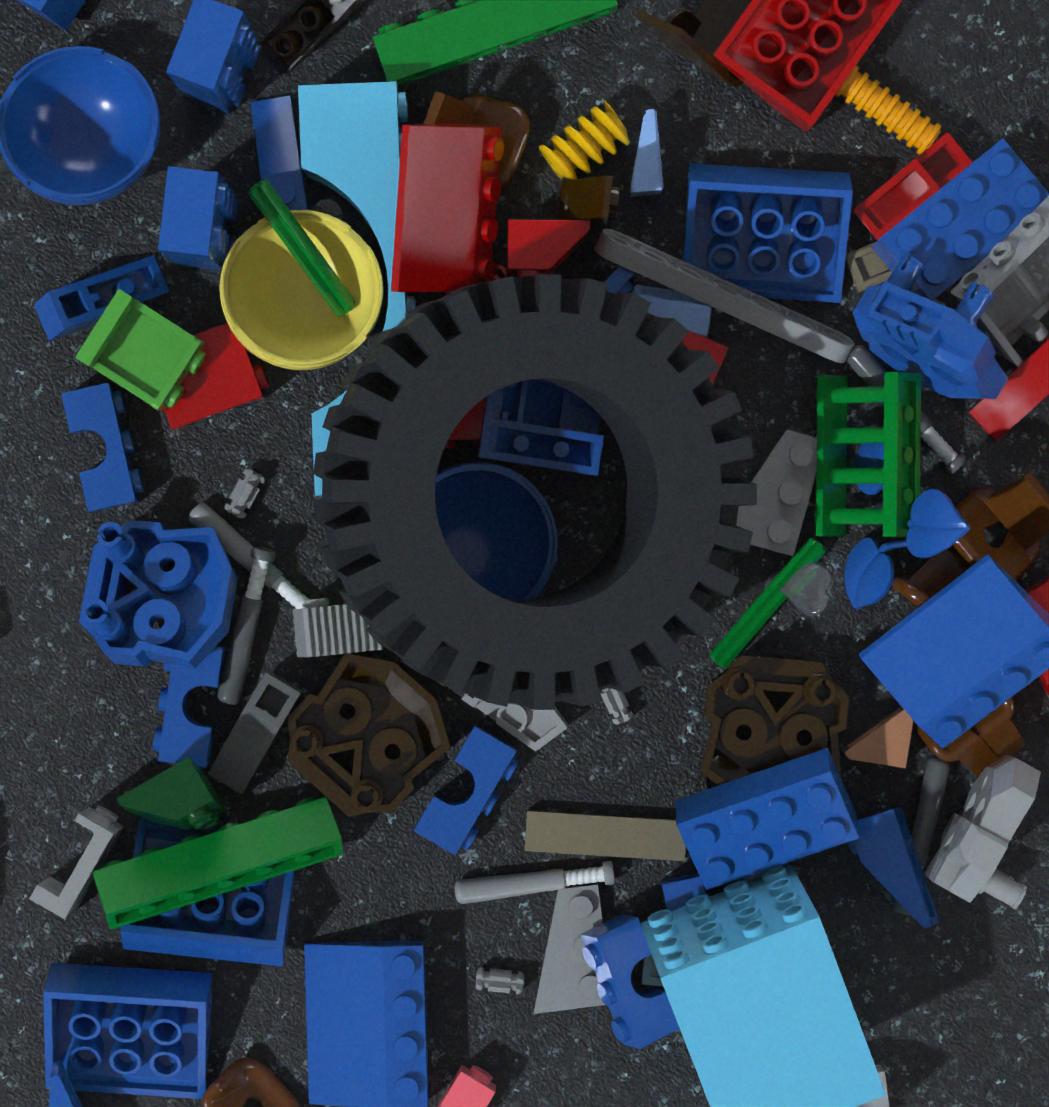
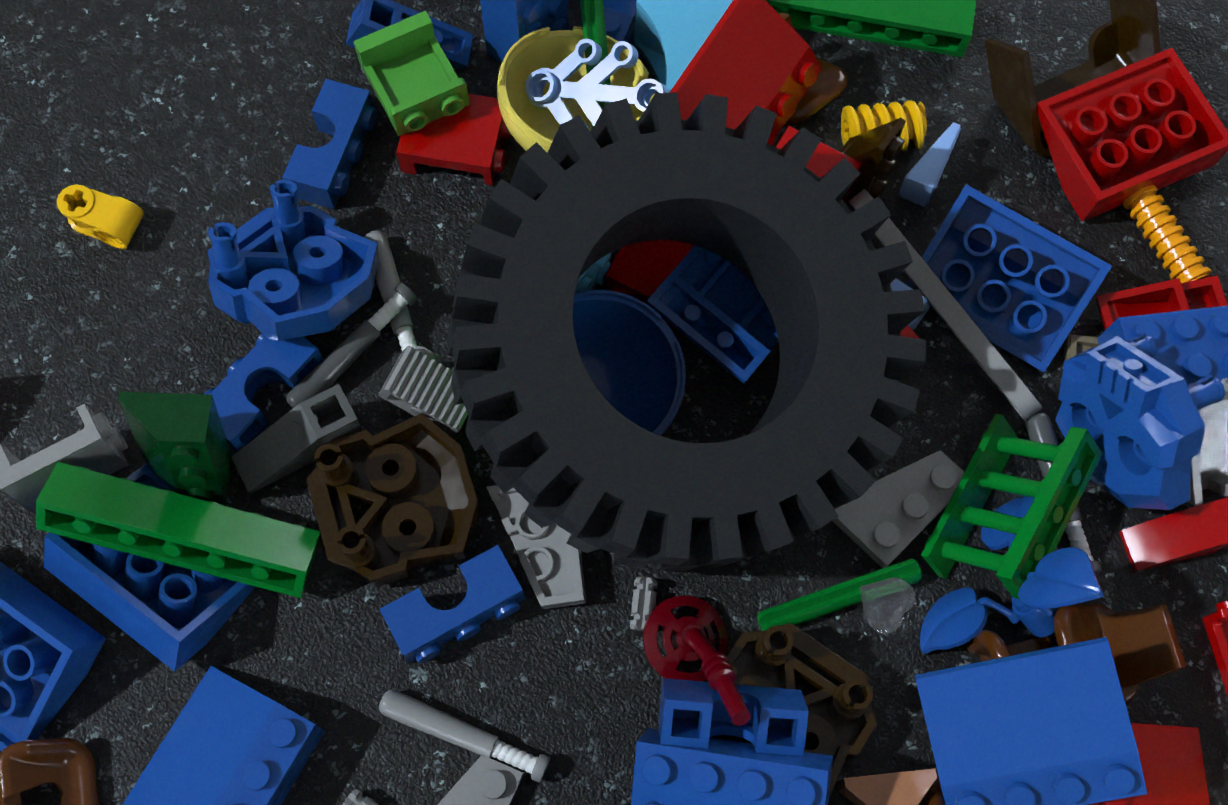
camera: 25 degrees right, 20 degrees down
(244, 493) = (424, 245): light grey piece -> none
(316, 284) = (590, 88): none -> light blue plant
(603, 835) = (558, 729): dark tan tile -> none
(672, 715) = (691, 645): none -> dark red dish
(759, 746) = (695, 712): none -> blue arch

